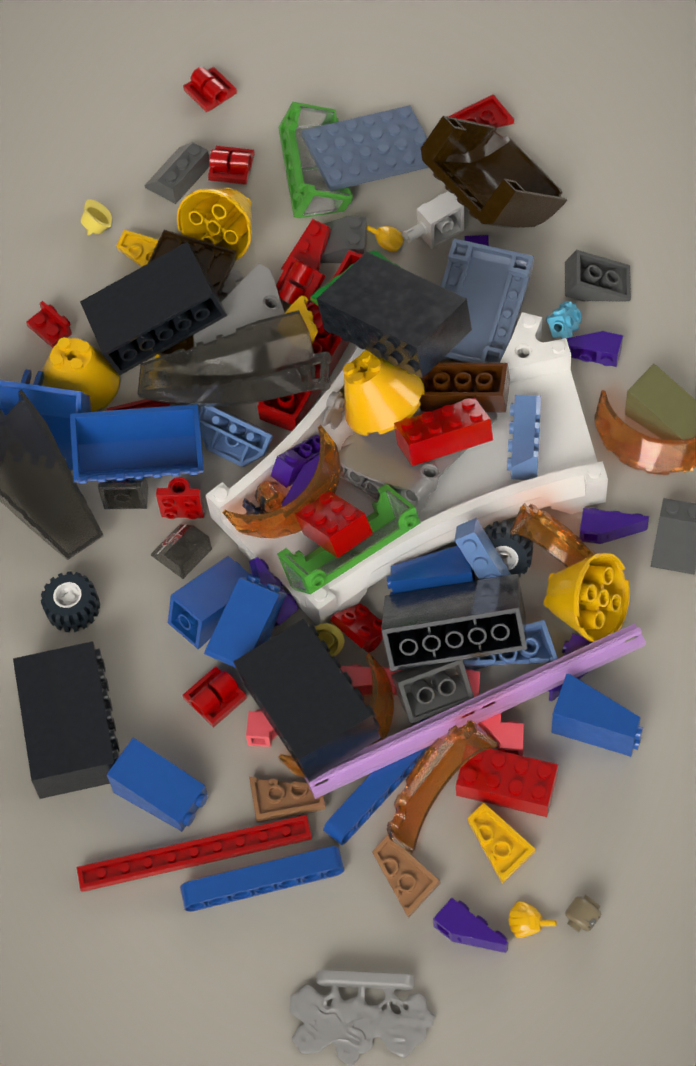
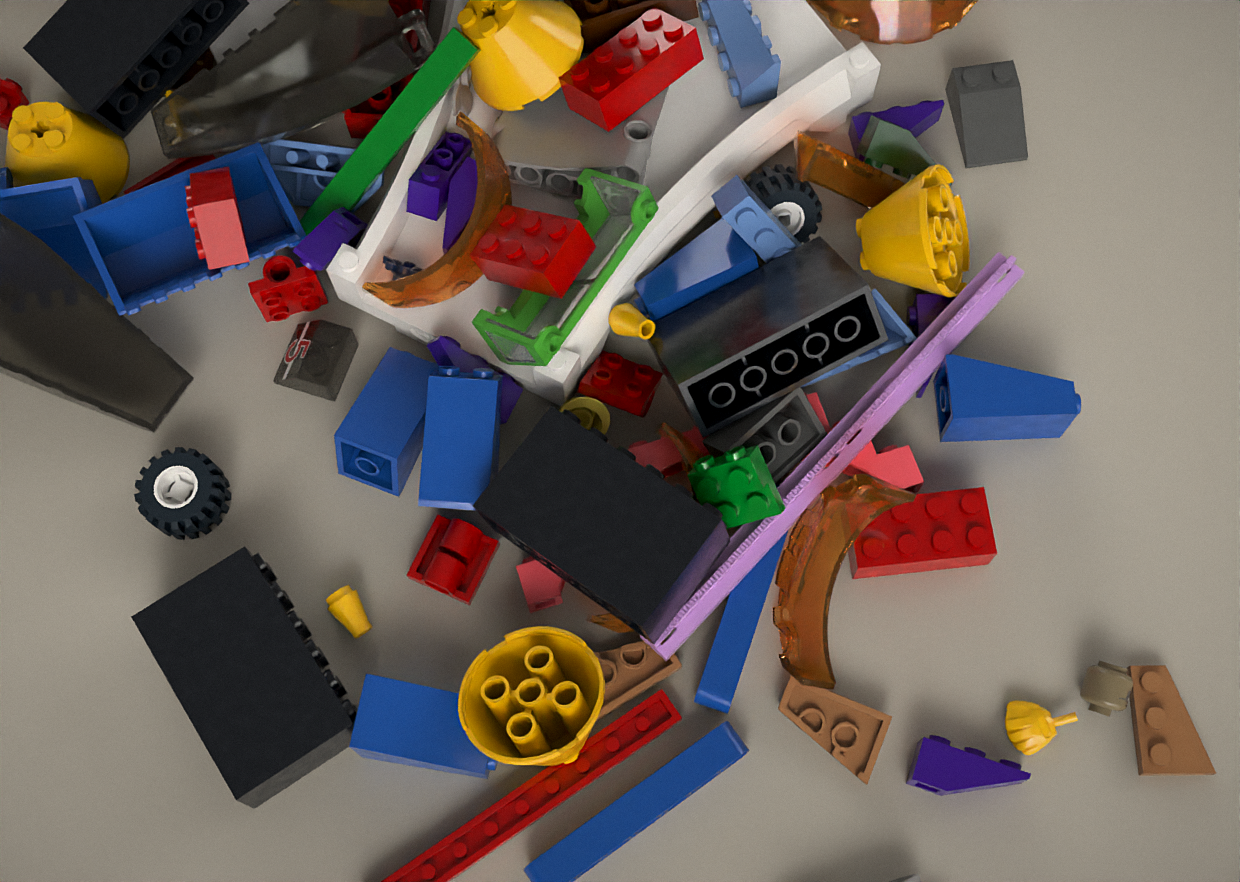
camera: 25 degrees left, 10 degrees up
(124, 494) = (199, 308): clear smoke slope -> none
(140, 704) = (349, 611): none -> yellow cone
(153, 442) = (216, 218): none -> brick
(208, 479) = (324, 241): none -> dark purple slope
(223, 786) = (532, 697): none -> yellow cone
(269, 496) = (419, 241): clear orange head -> none
(276, 426) = (394, 128): none -> green tile
(378, 587) = (629, 321): none -> yellow cone
(397, 706) = (737, 486): none -> green plate
(499, 841) = (946, 626): yellow wing -> none
(600, 536) = (893, 146): none -> dark green slope
(610, 951) = (1162, 727): none -> medium nougat wing

